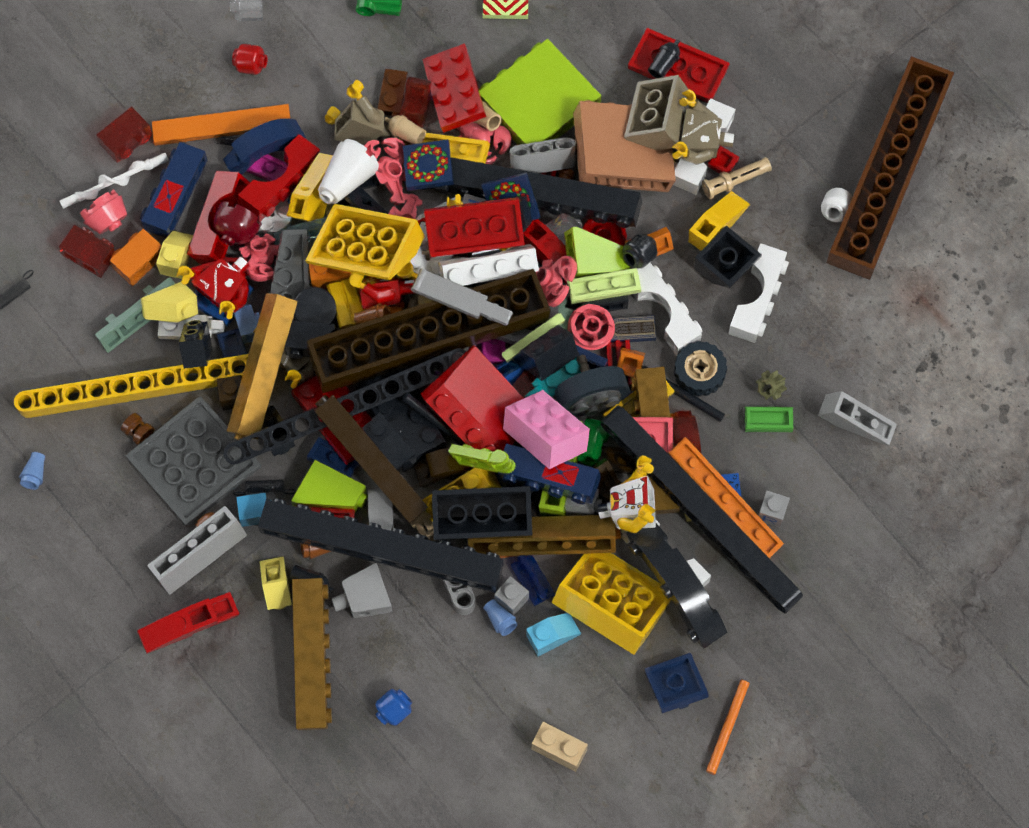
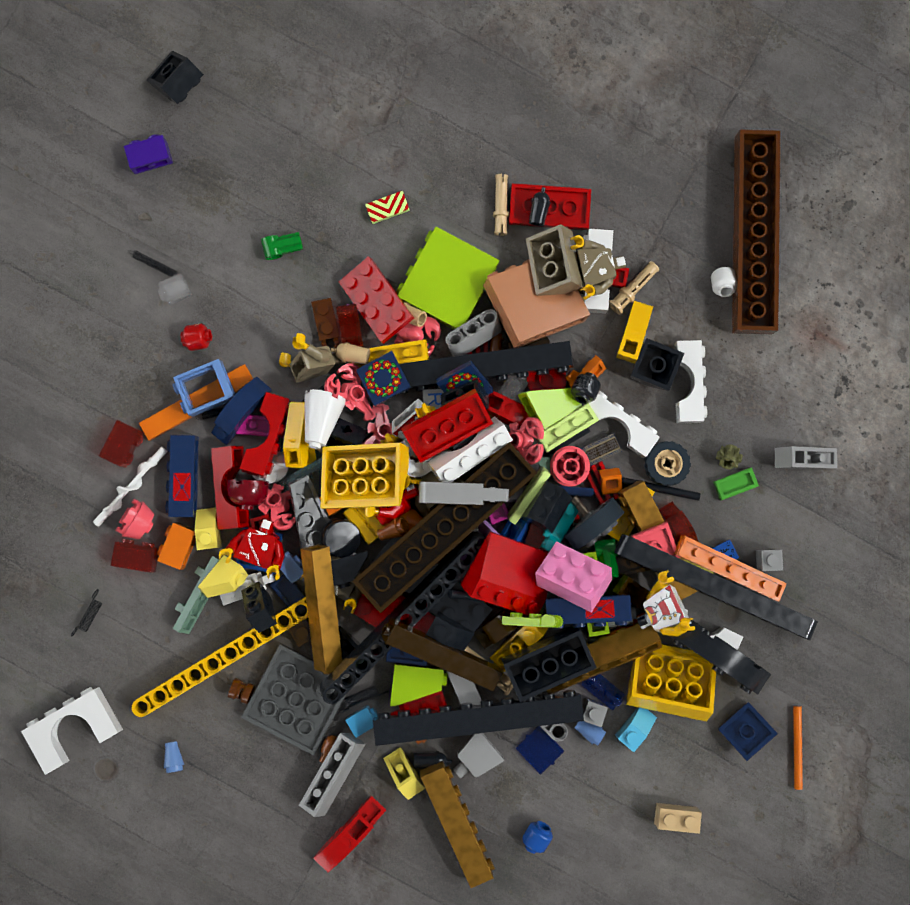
camera: 25 degrees left, 15 degrees up
(234, 91) = (224, 381): none -> medium blue window
(436, 618) = (539, 749): none -> clear blue piece
(623, 53) = (501, 213): none -> tan pin

